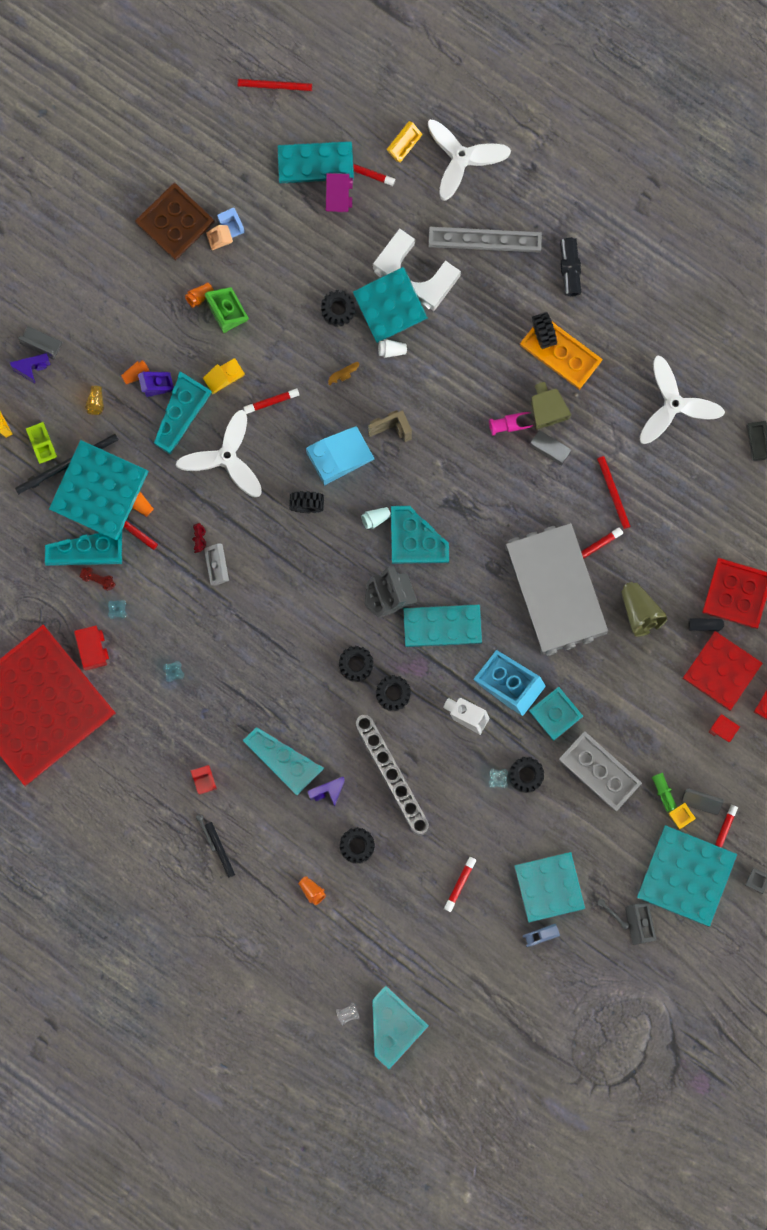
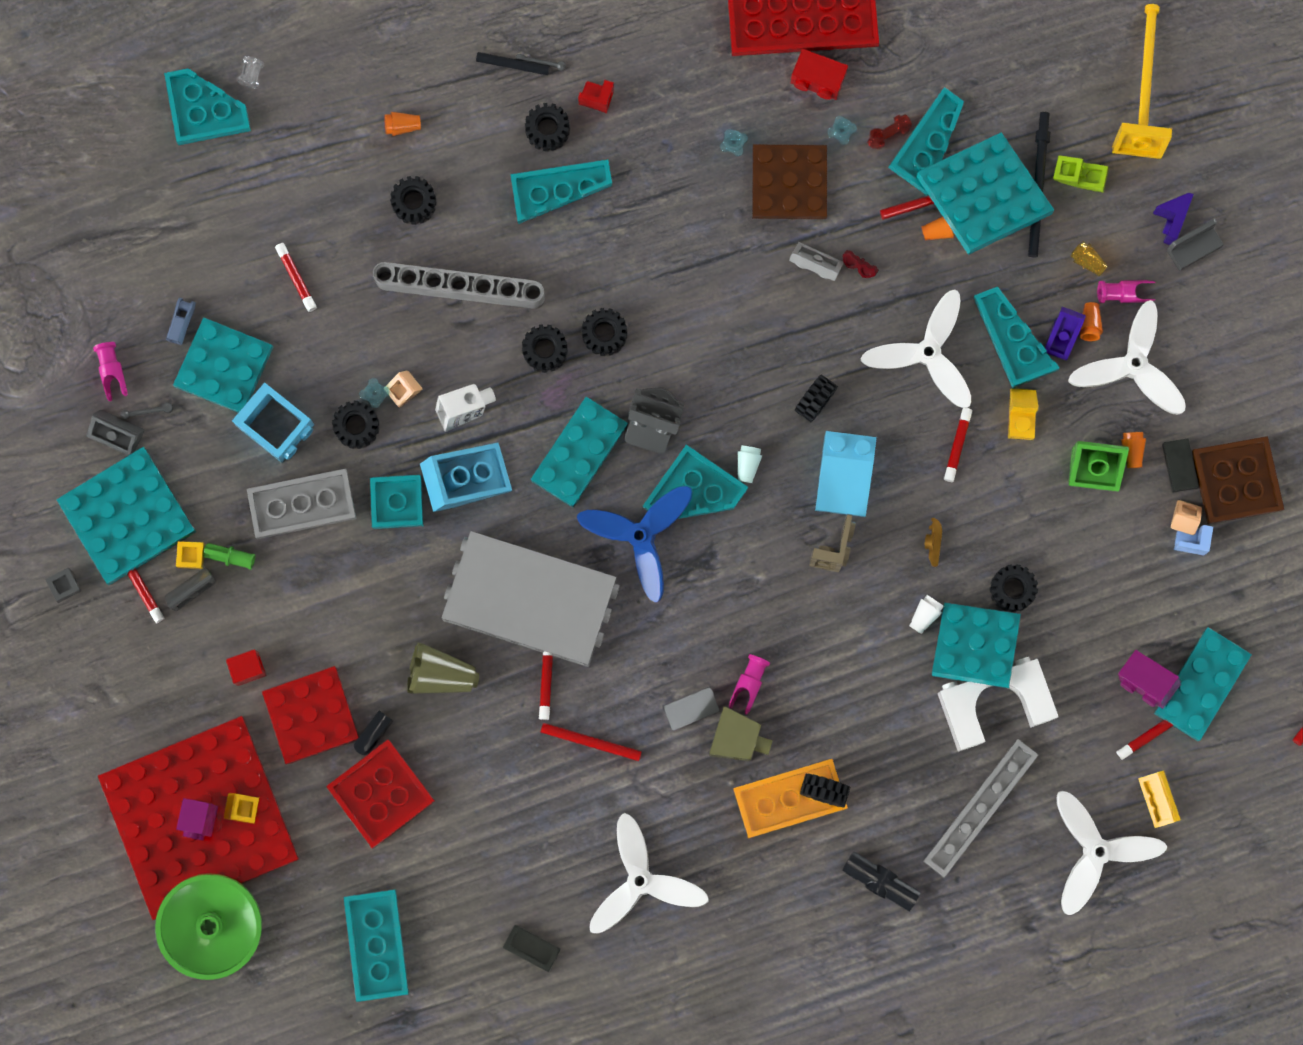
camera: 130 degrees right, 0 degrees up
(102, 366) = (1122, 291): none -> dark pink piece
(156, 338) = (1147, 377): none -> white piece
(174, 618) = (789, 182): none -> reddish brown plate
(189, 261) = (1180, 465): none -> pearl dark grey tile
(247, 784) = (543, 113): none -> black tyre
(333, 788) = (490, 214): dark purple slope -> none
(472, 564) = (655, 521): none -> blue piece
(481, 763) = (403, 388): none -> light nougat slope
(563, 845) = (253, 409): none -> medium azure window
(603, 957) = (110, 368): none -> dark pink piece

